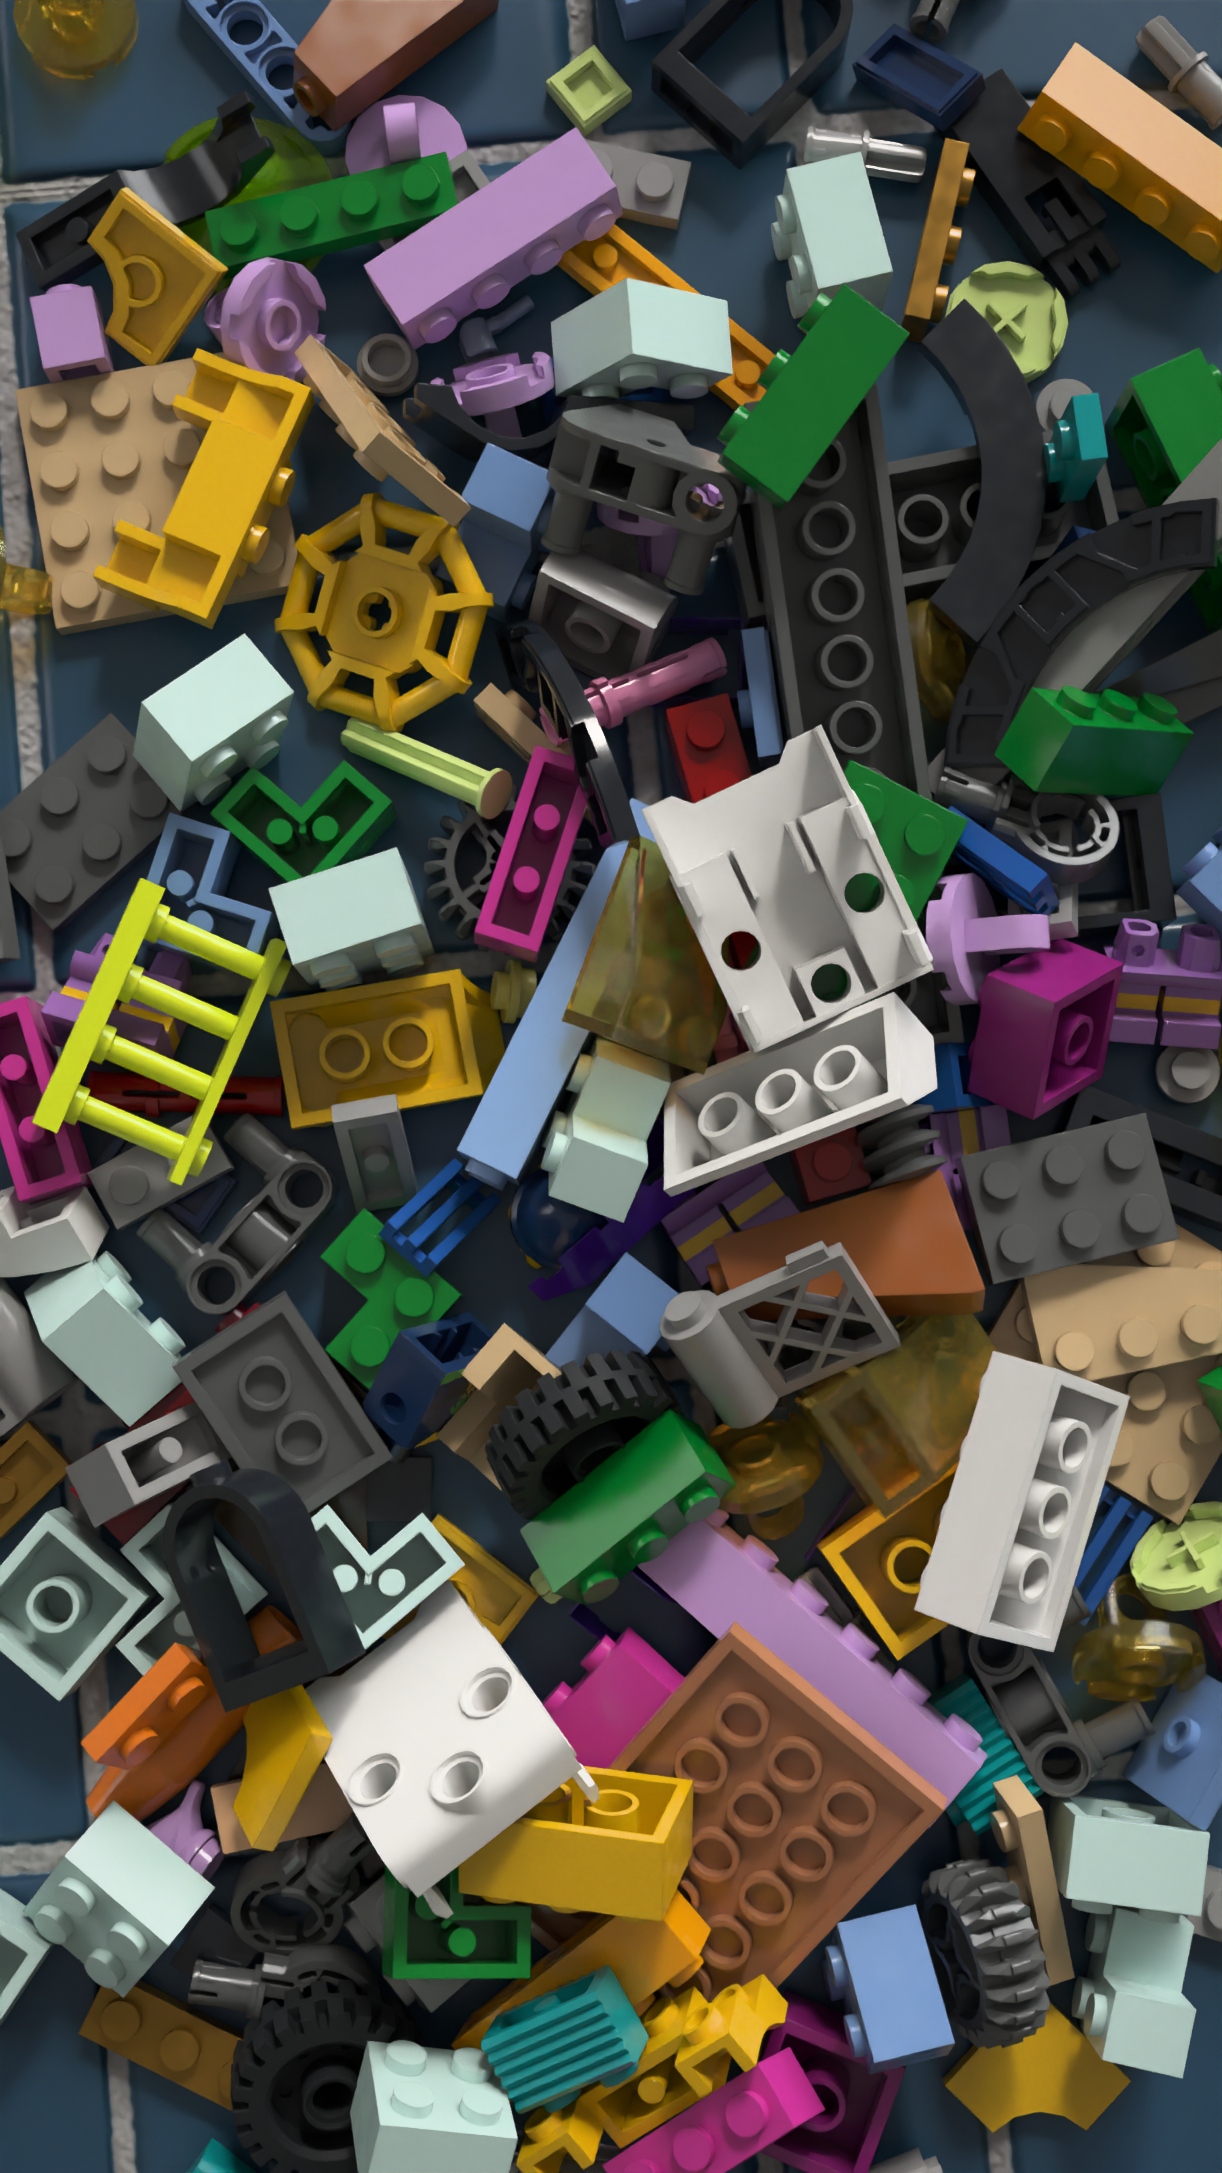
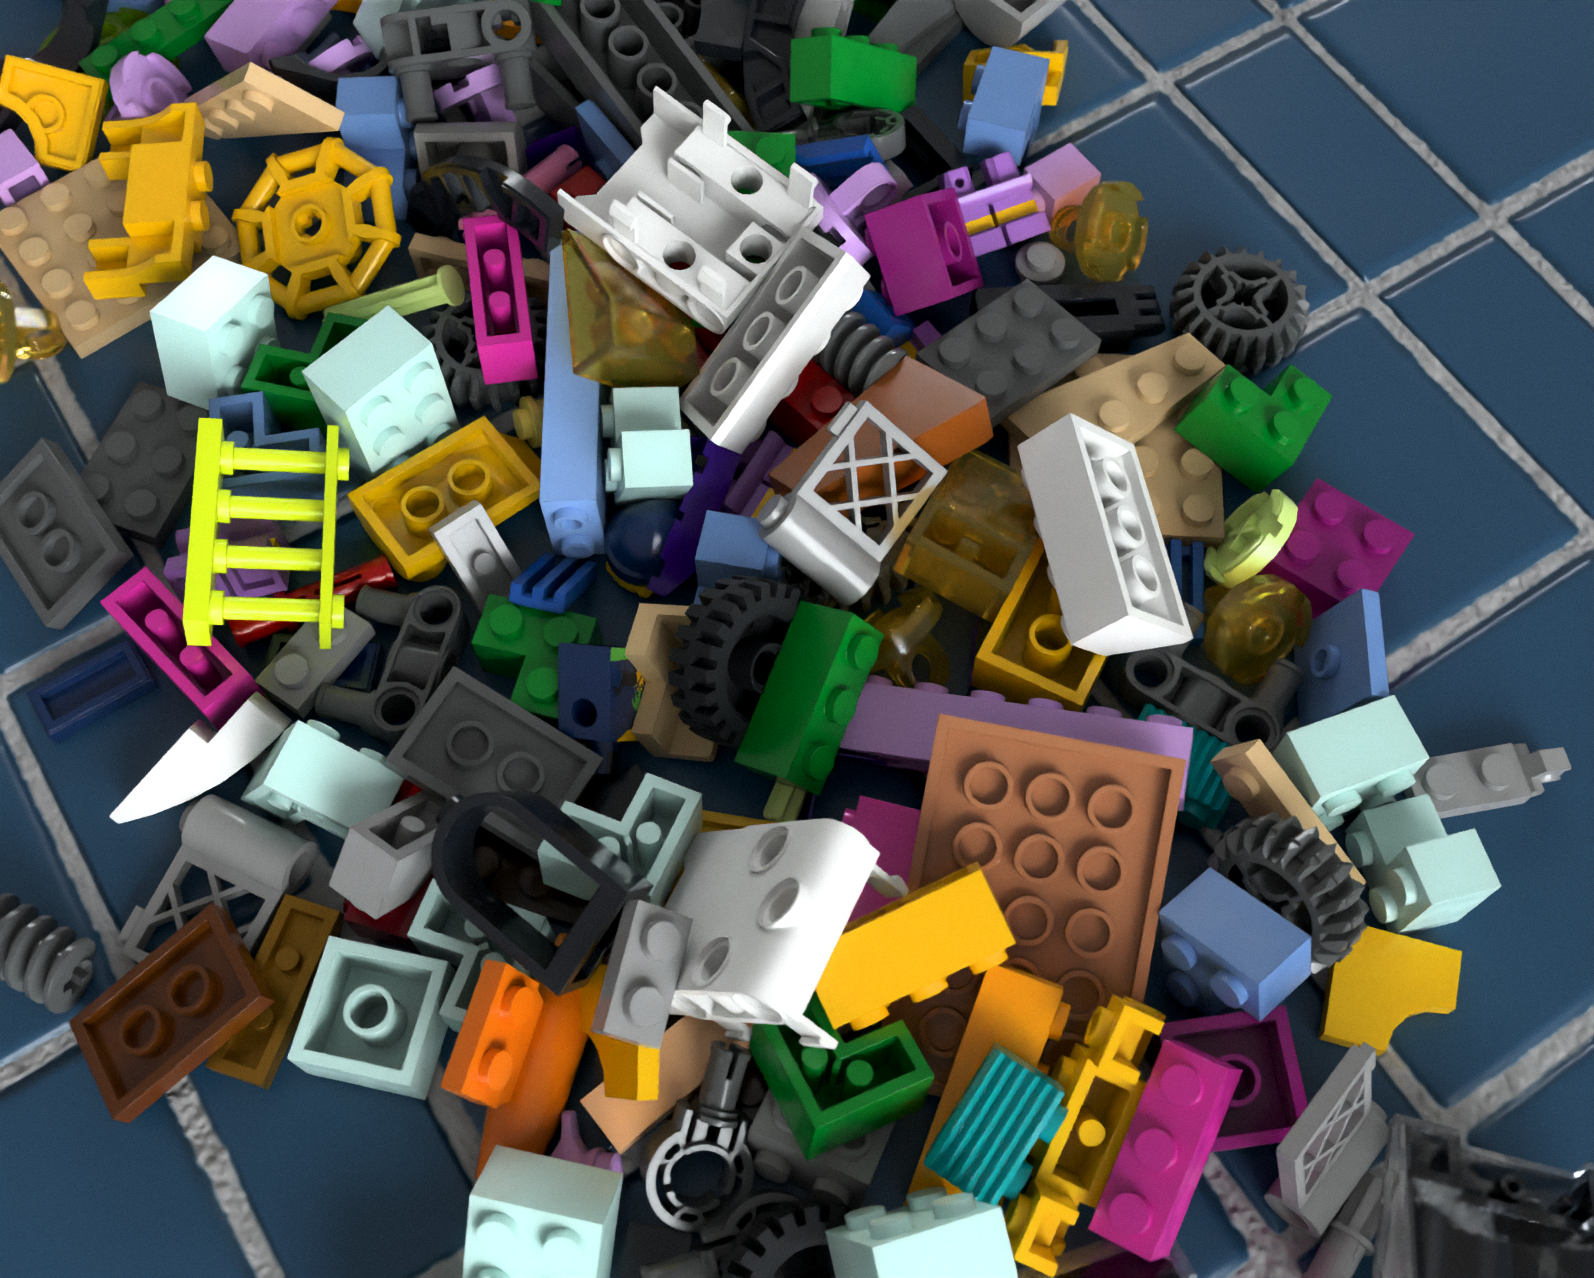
camera: 25 degrees left, 20 degrees down
(308, 1749) = (642, 974): none -> light grey plate

